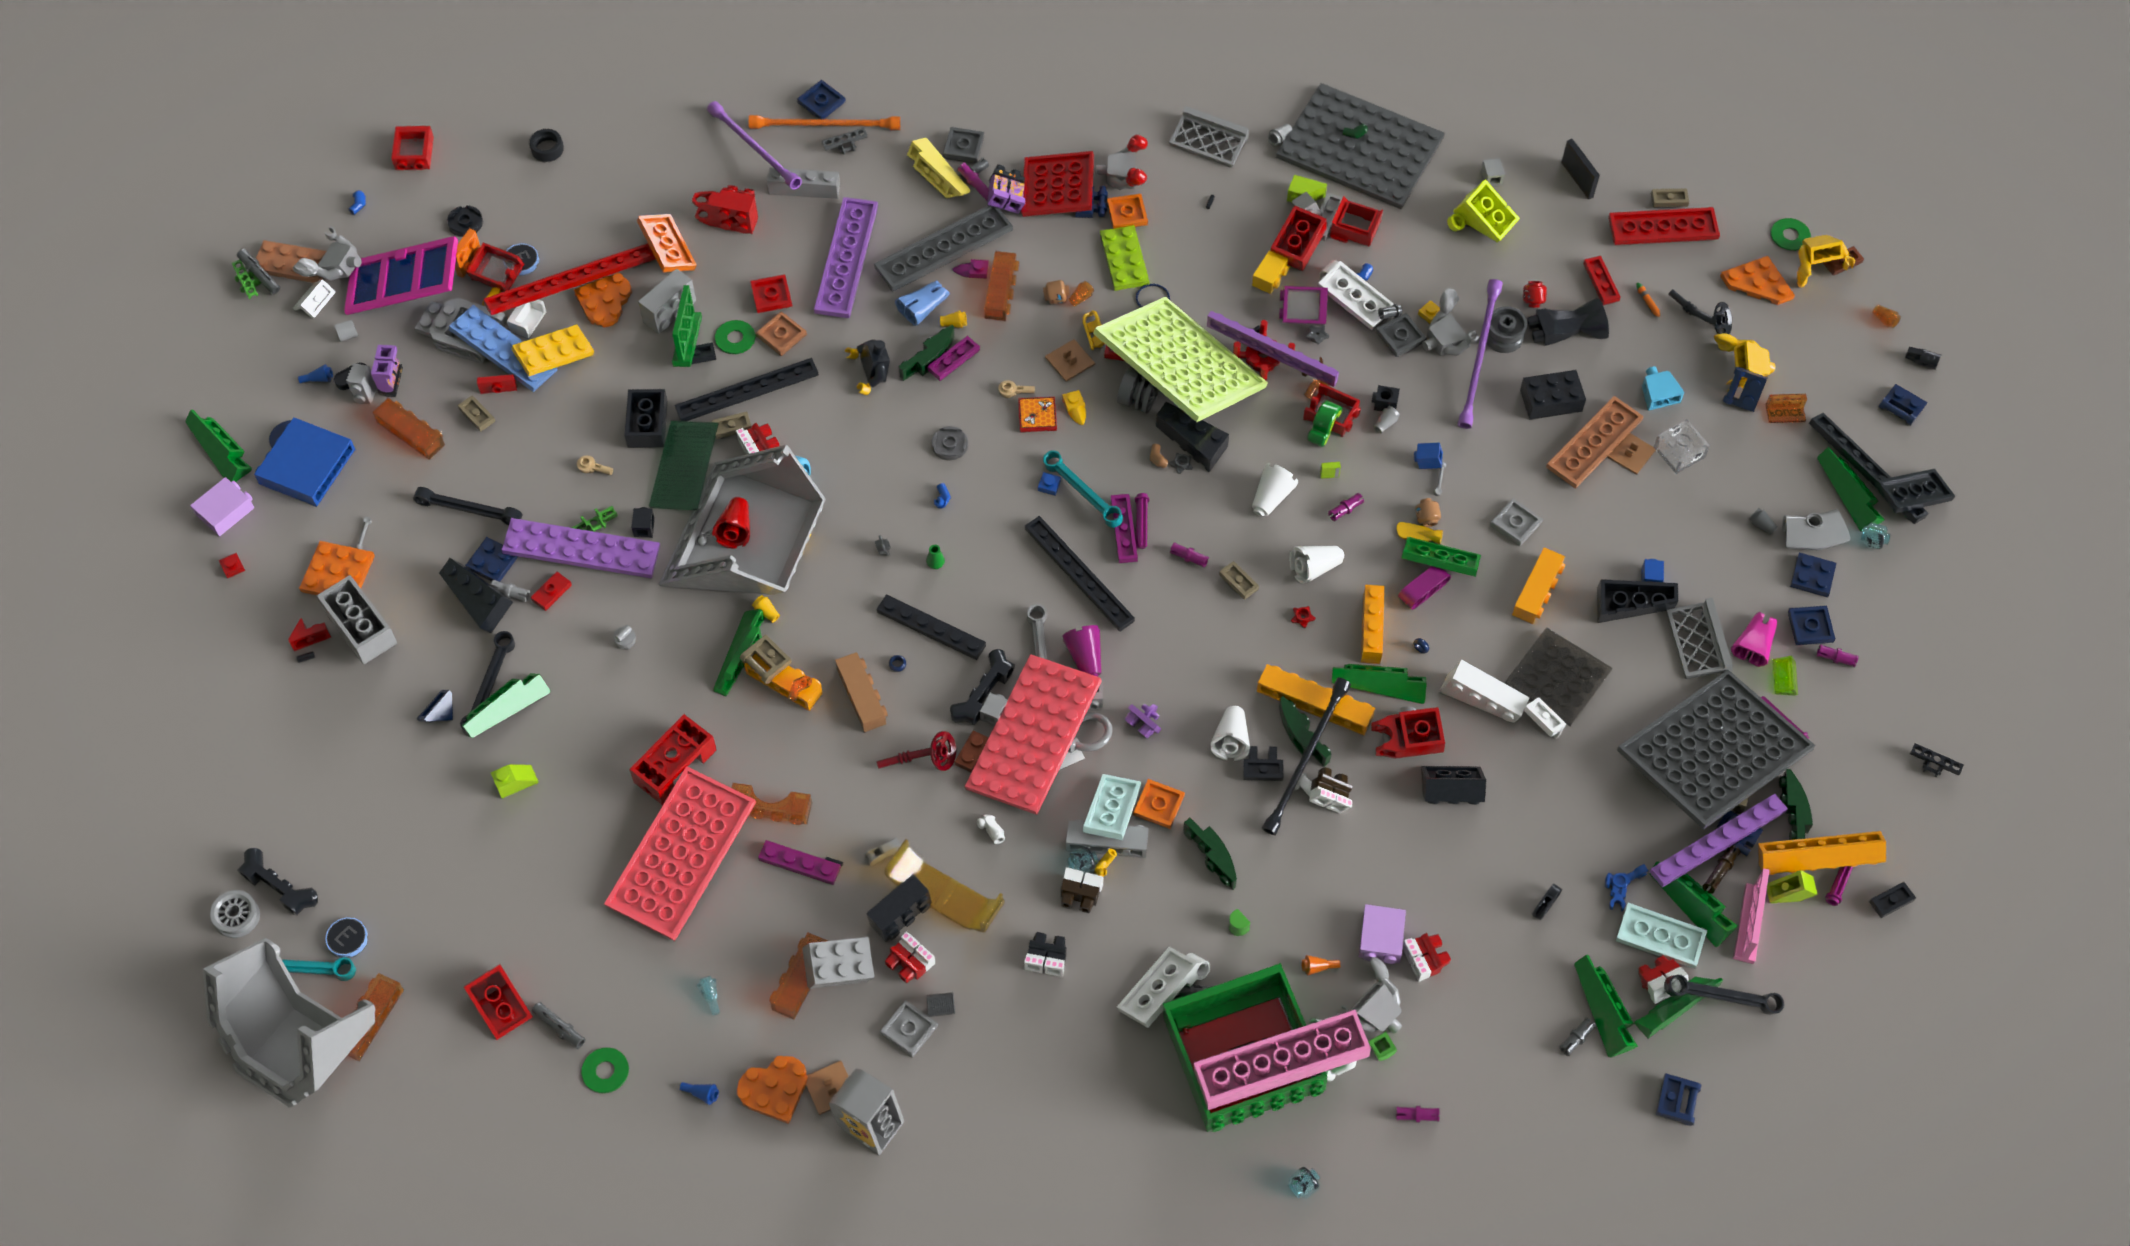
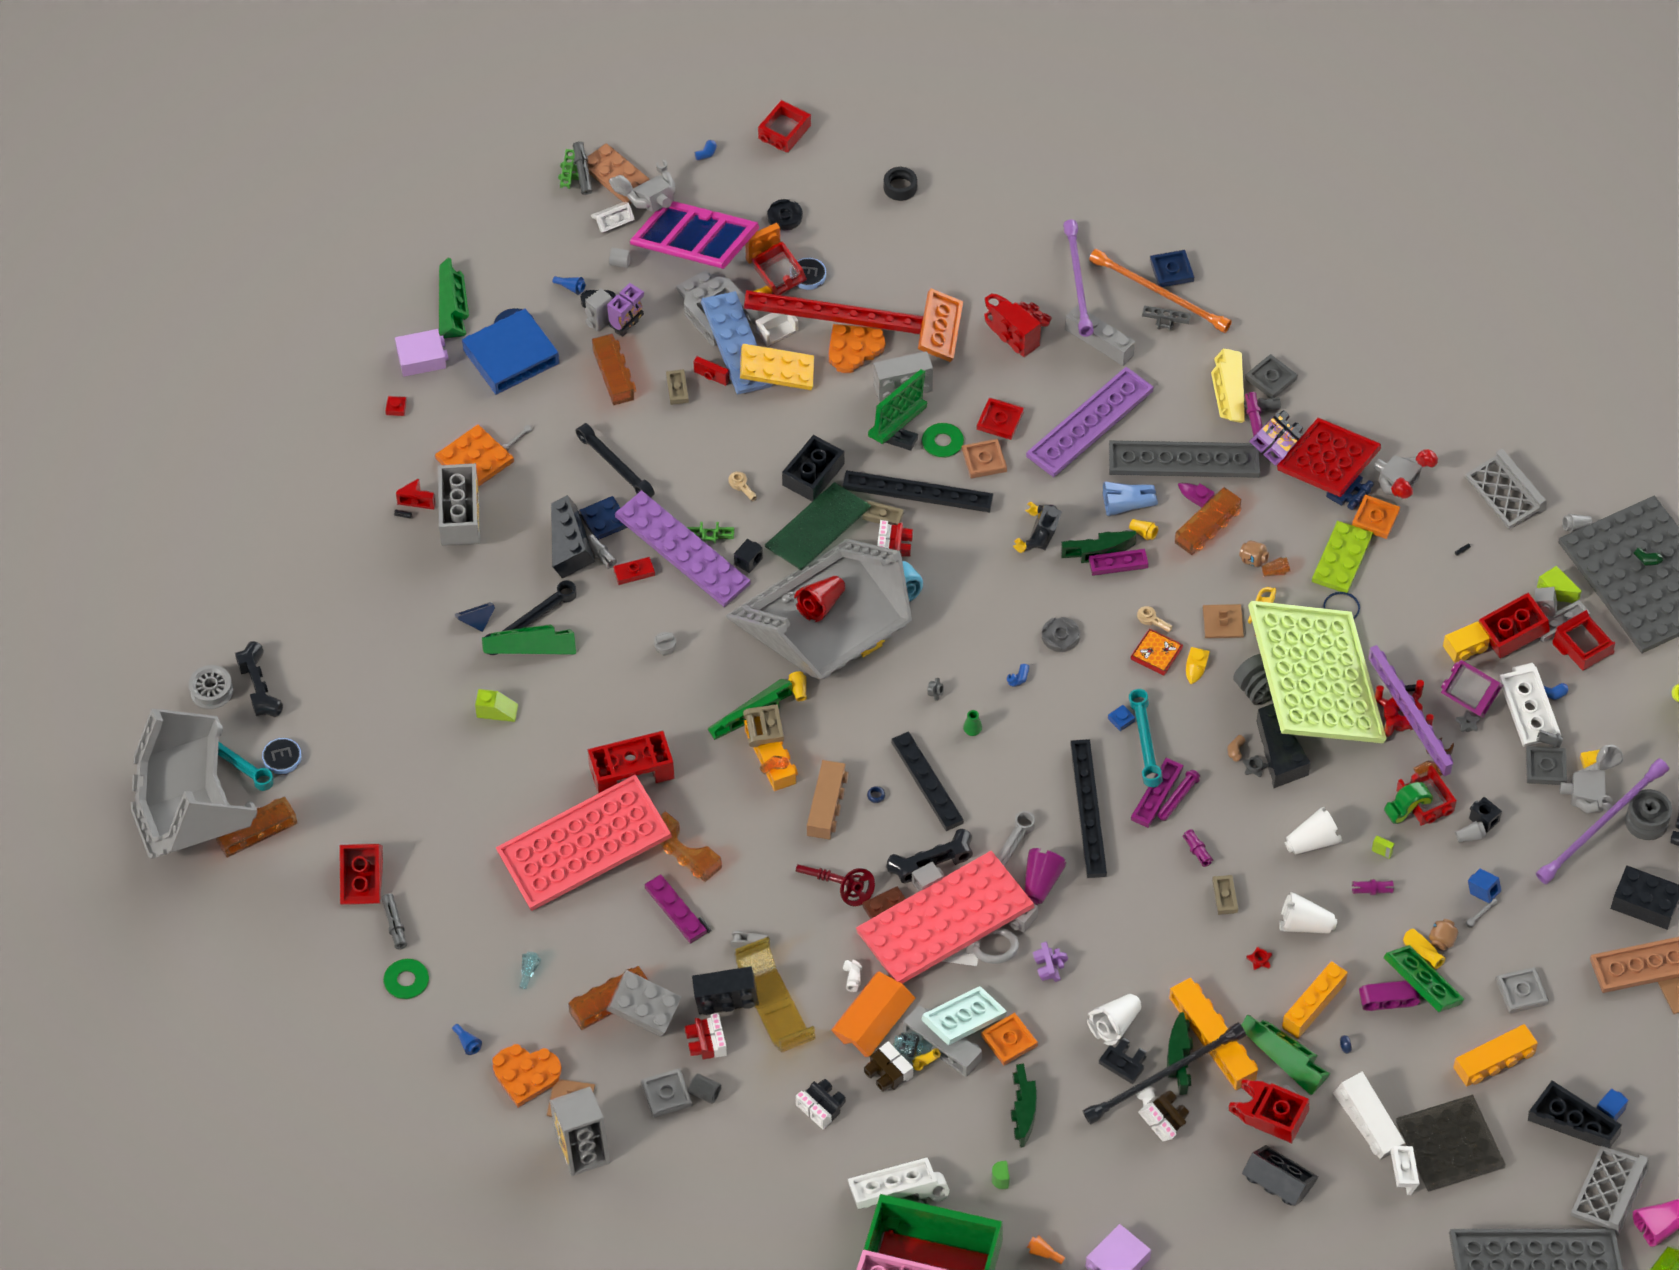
camera: 35 degrees right, 5 degrees down
(1033, 851) = (873, 1013): none -> orange slope

